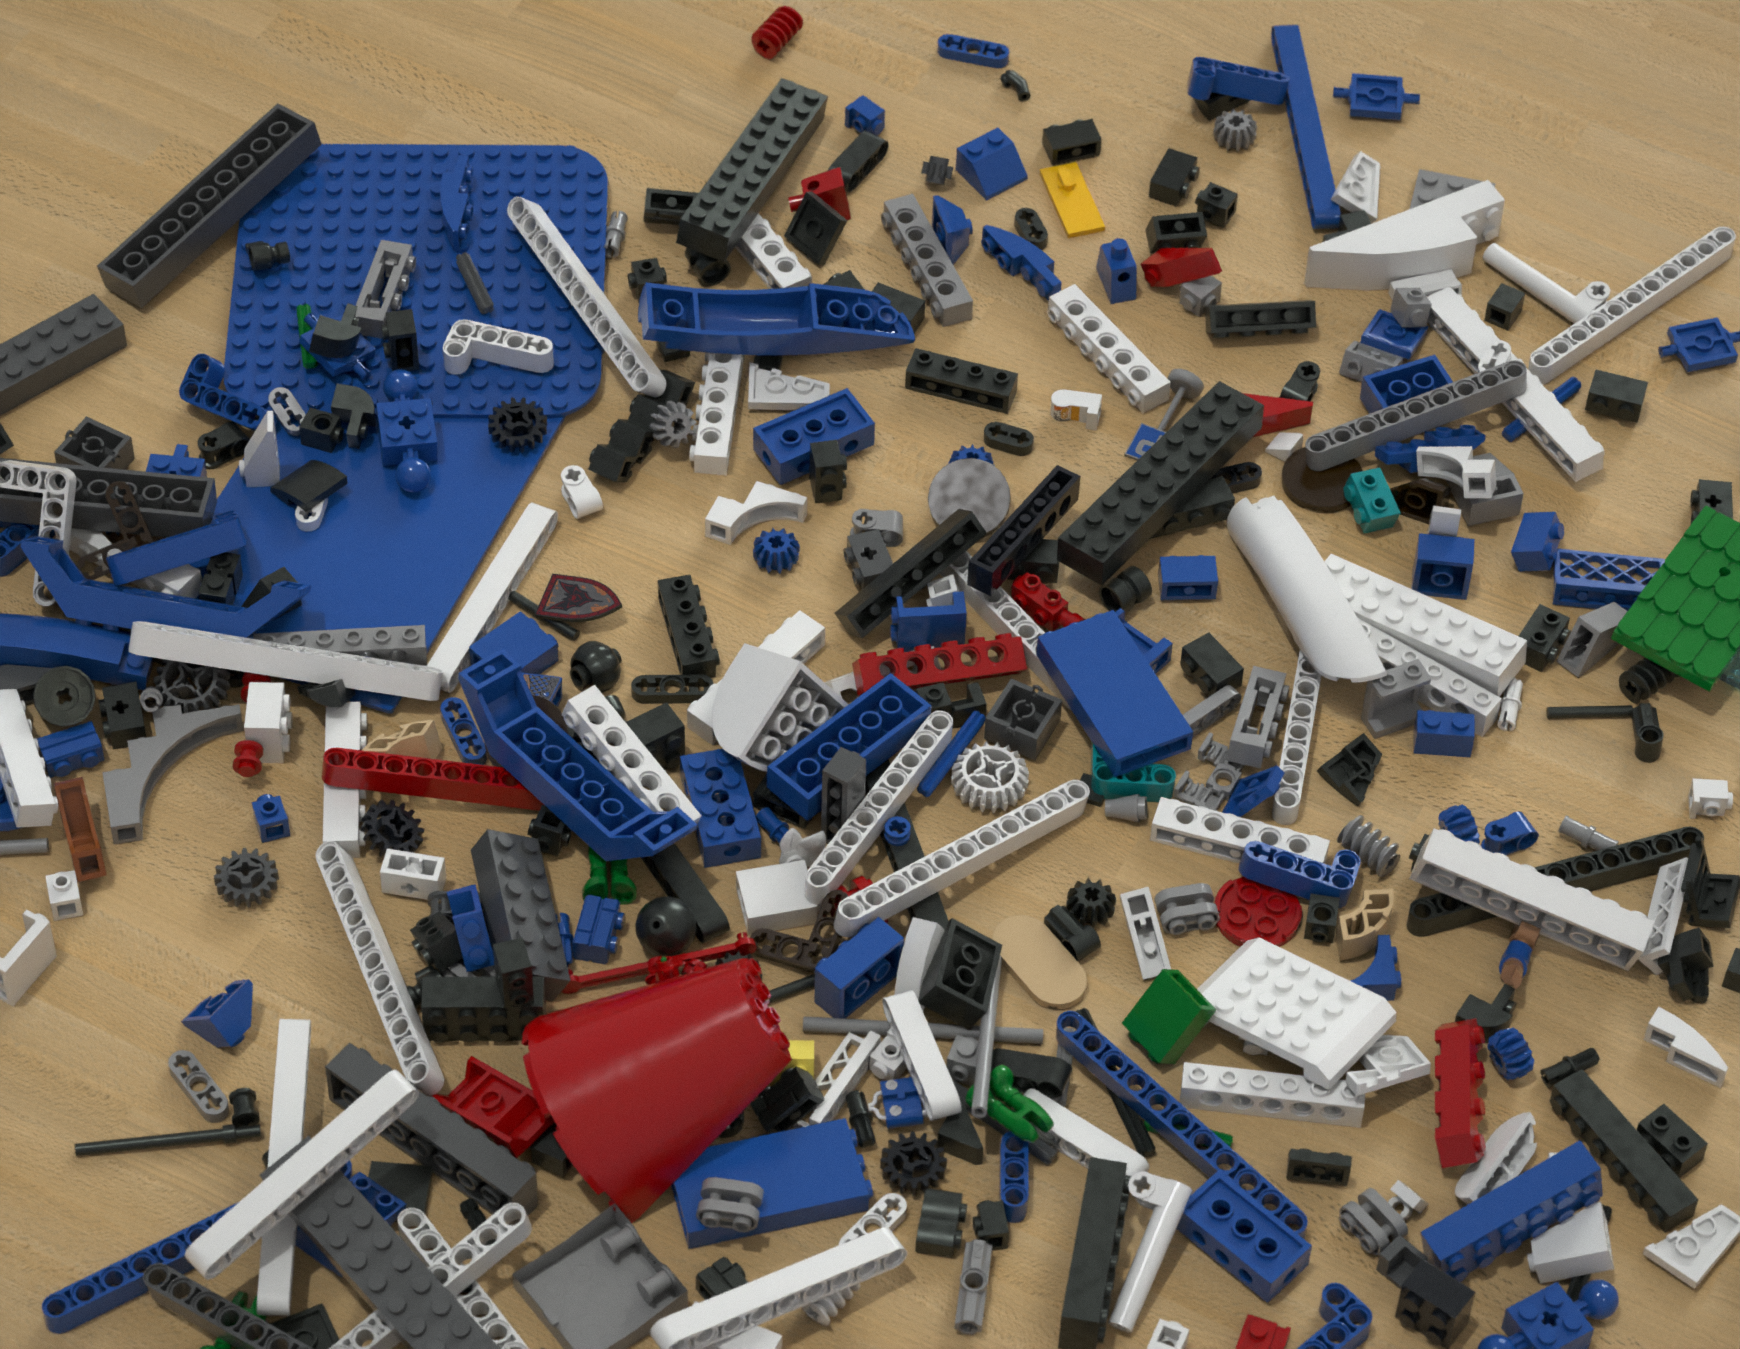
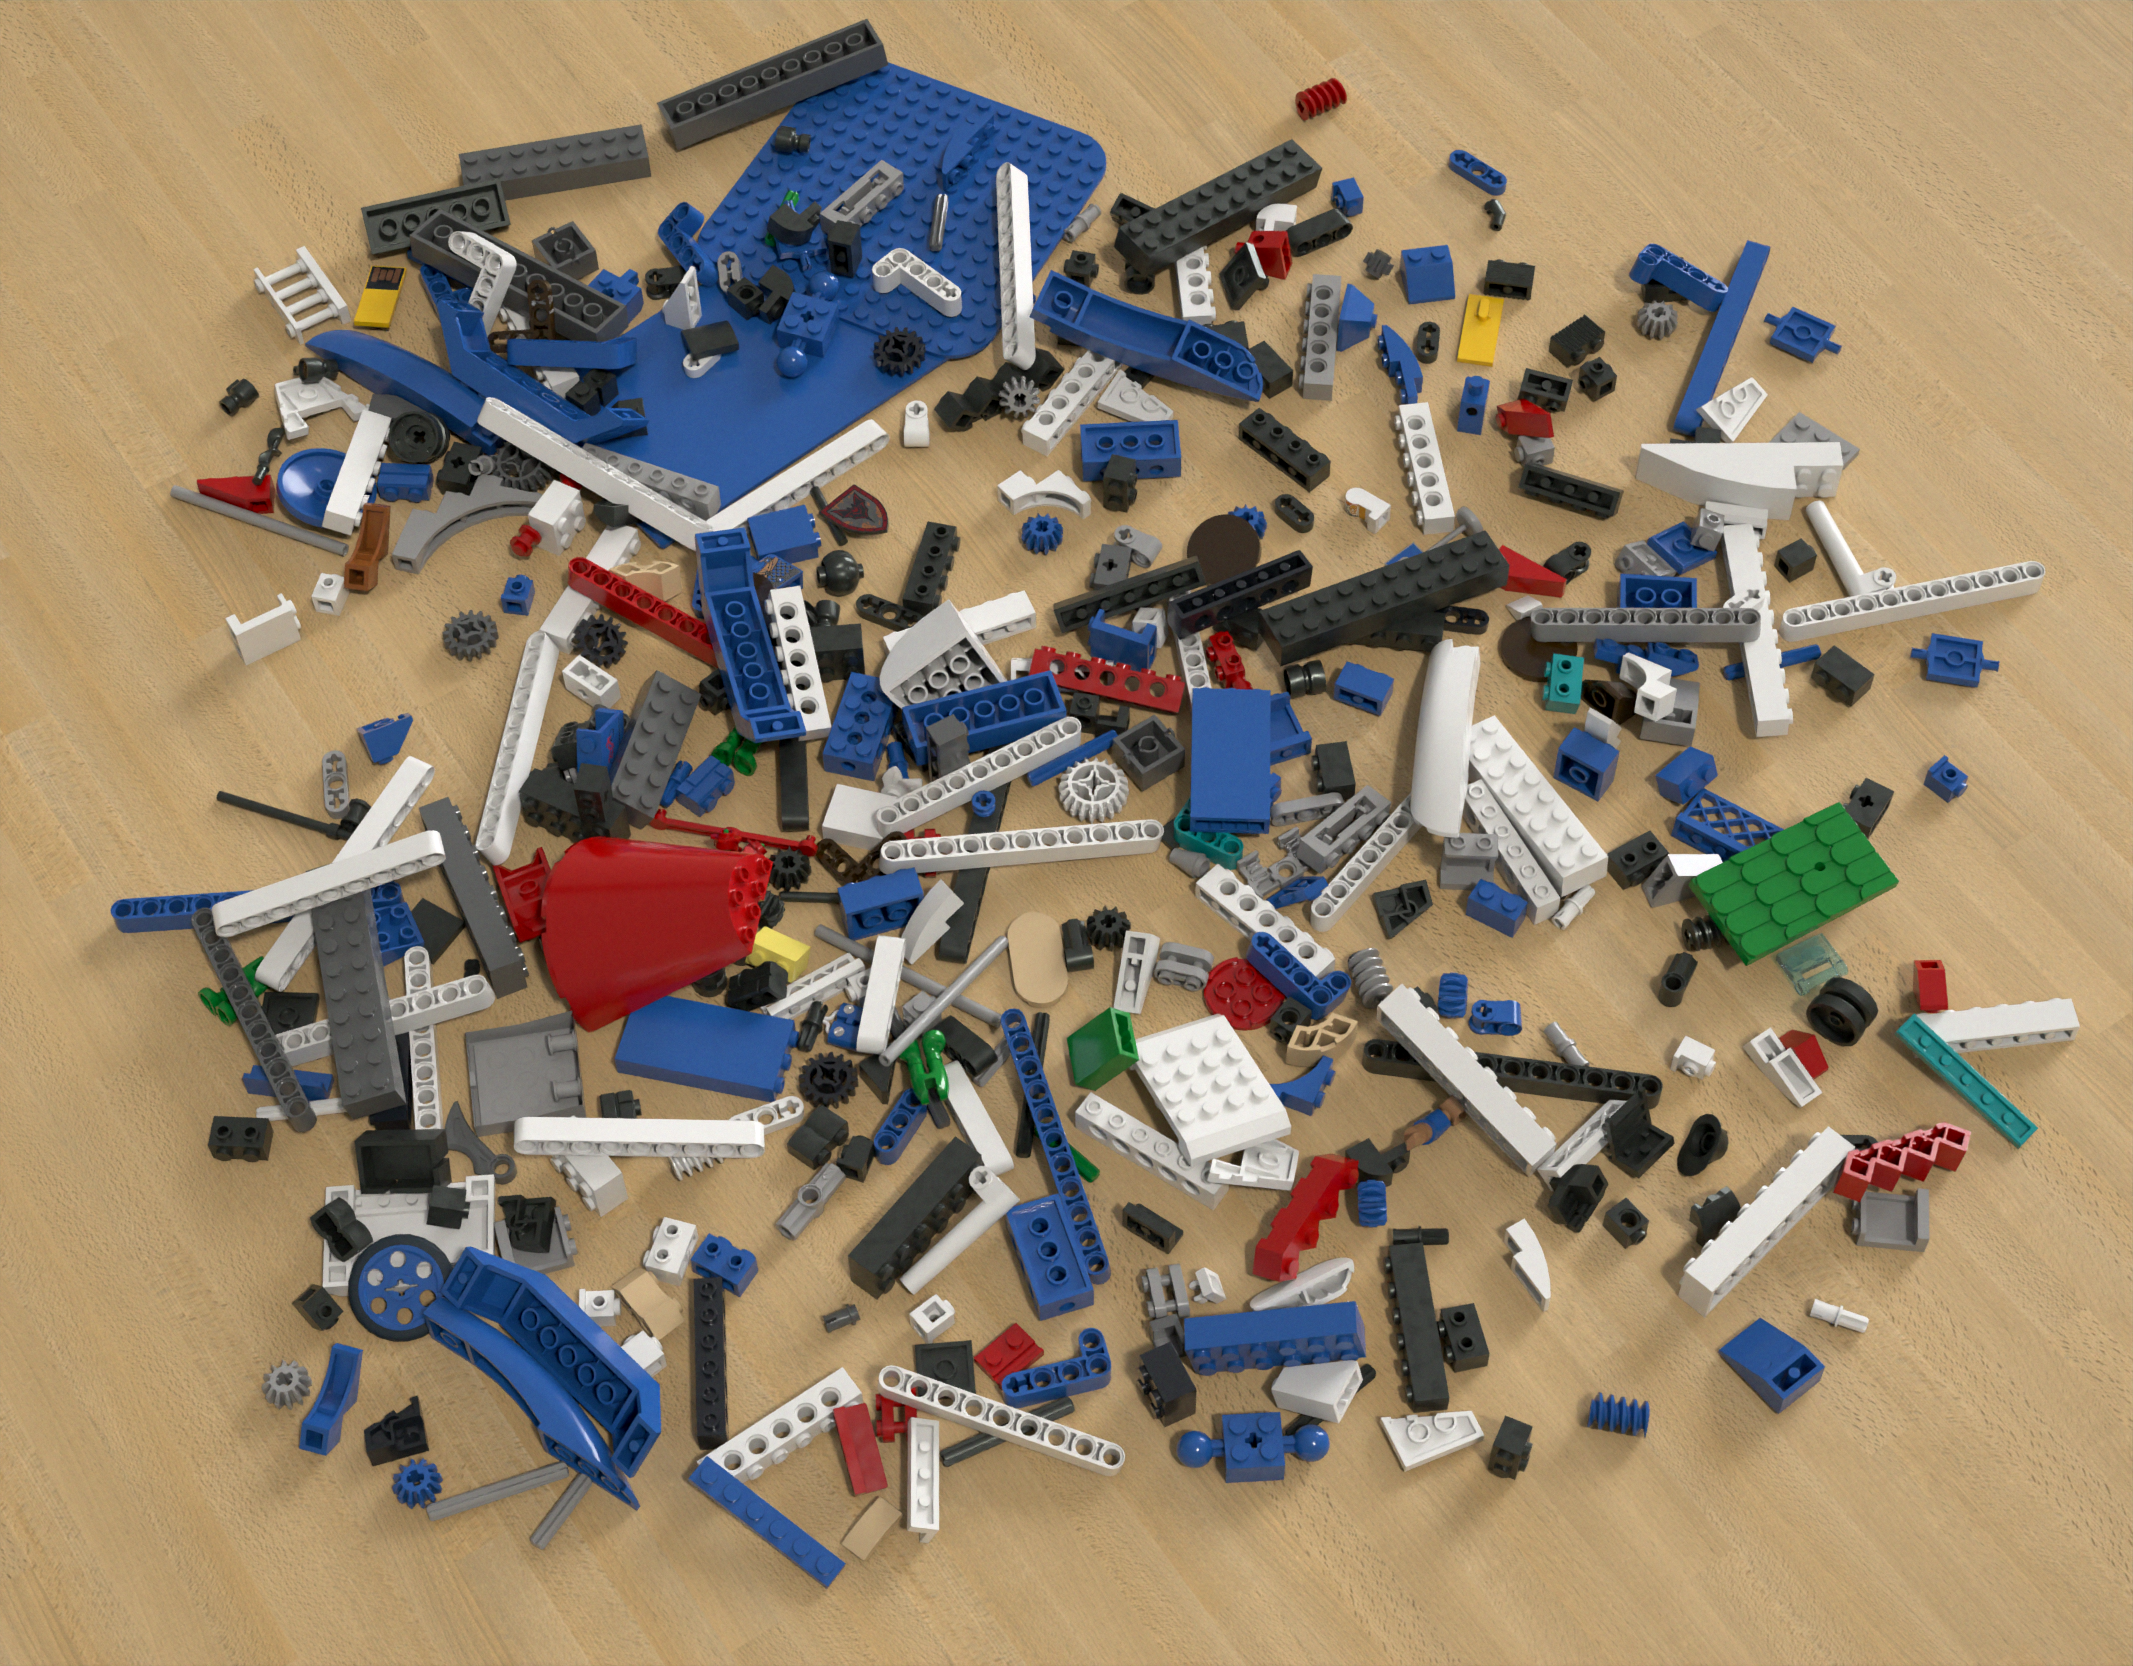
camera: 30 degrees right, 5 degrees up
(665, 926) = (754, 806): pearl dark grey piece -> none
(729, 1204) = (656, 1063): light grey brick -> none
(810, 161) = (1276, 217): none -> white brick
(961, 975) = (955, 942): pearl dark grey slope -> none
(1589, 711) = (1639, 940): pearl dark grey bar -> none

